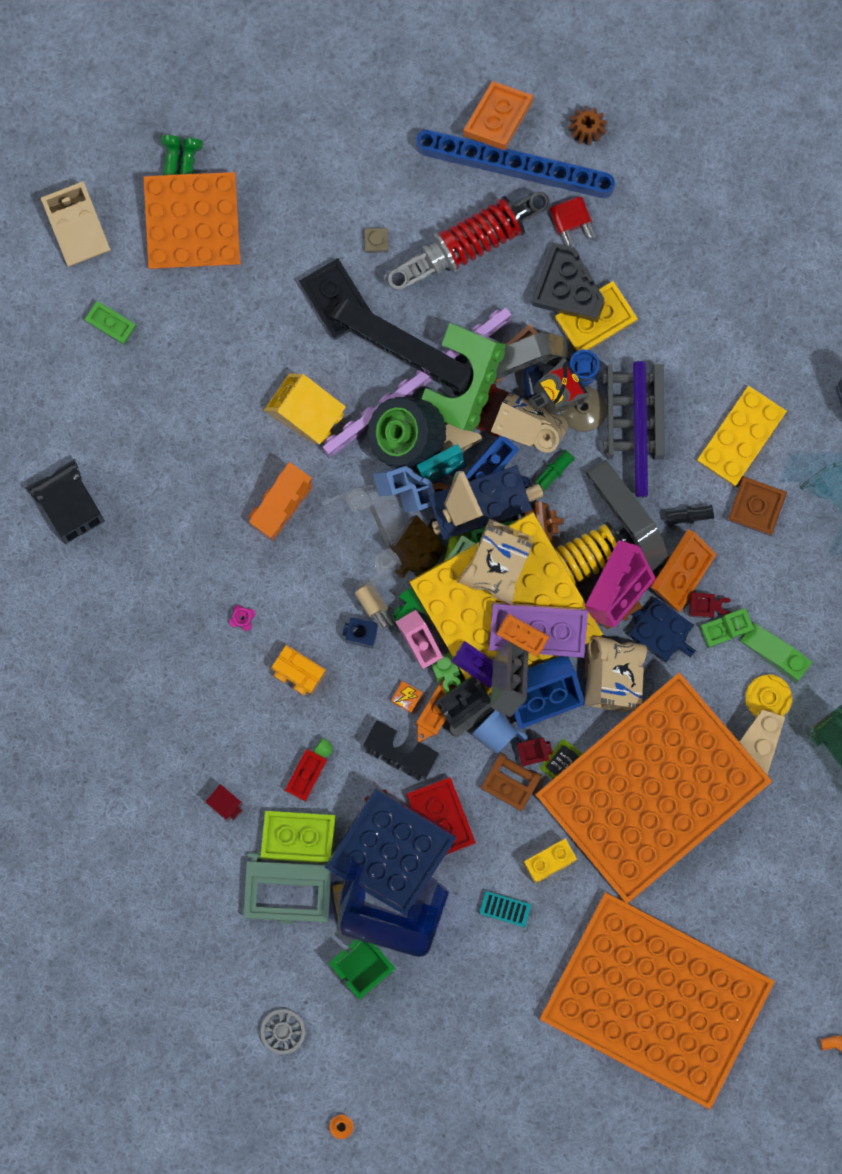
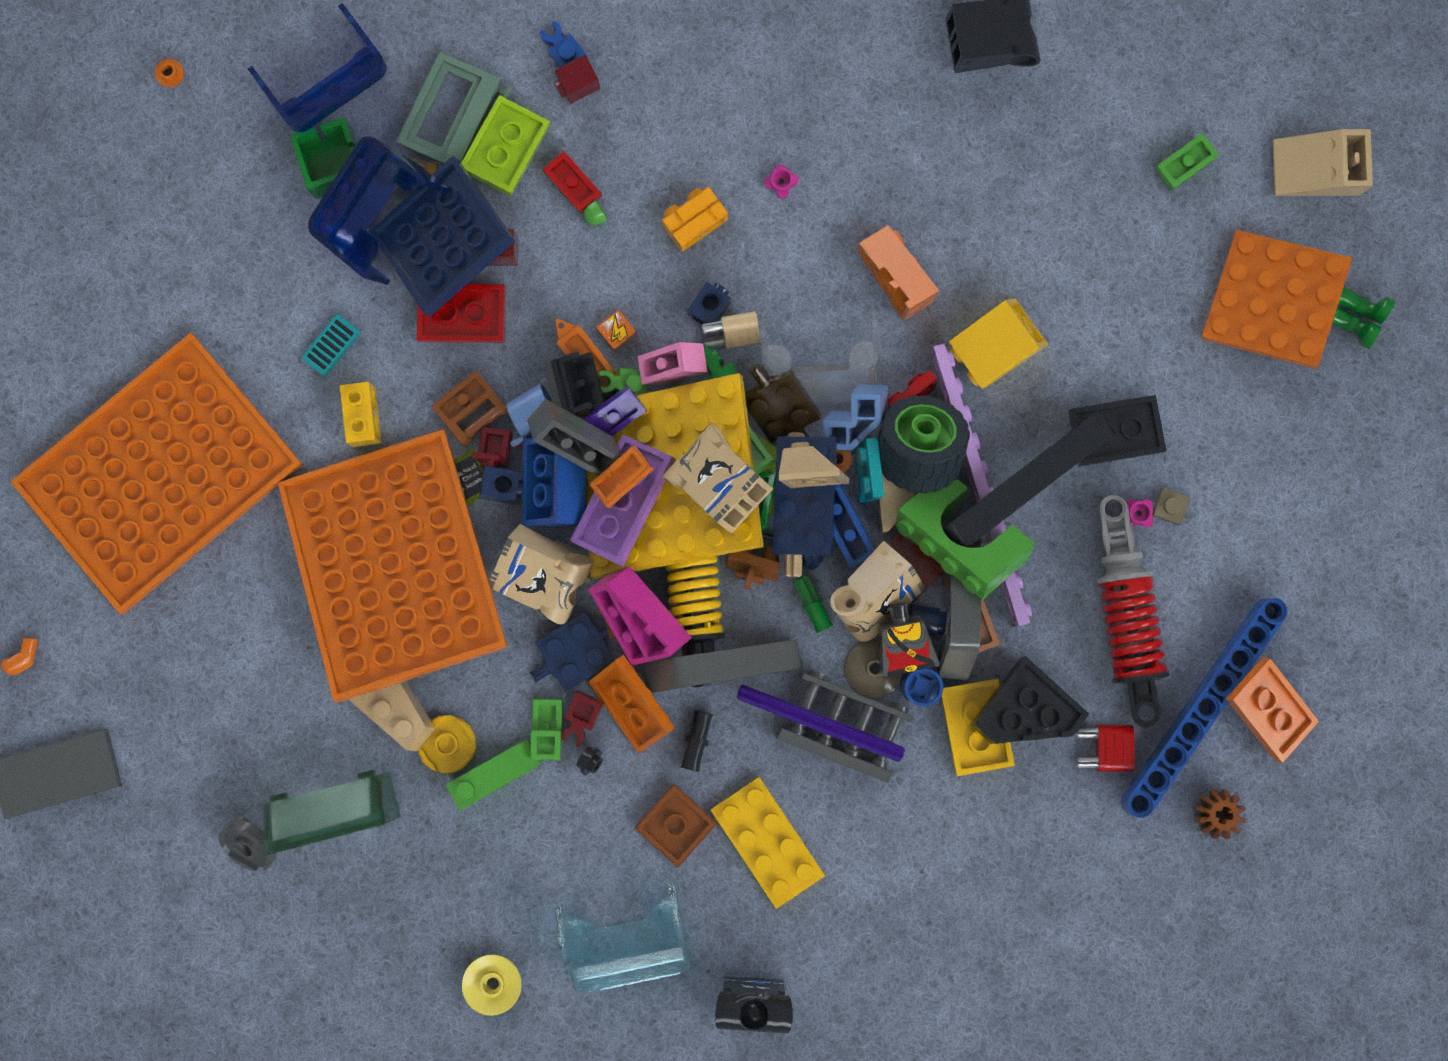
camera: 110 degrees right, 5 degrees up
(203, 823) = (563, 49): none -> blue plate
(282, 1031) = (299, 50): light grey wheel -> none
(287, 961) = (336, 89): none -> clear blue windscreen
(361, 454) = (918, 386): none -> red plate
(386, 257) = (1145, 508): none -> dark pink plate
(418, 762) = (571, 279): black arch -> none
(565, 742) = (488, 490): none -> dark blue brick
(737, 586) = (589, 760): none -> black plate

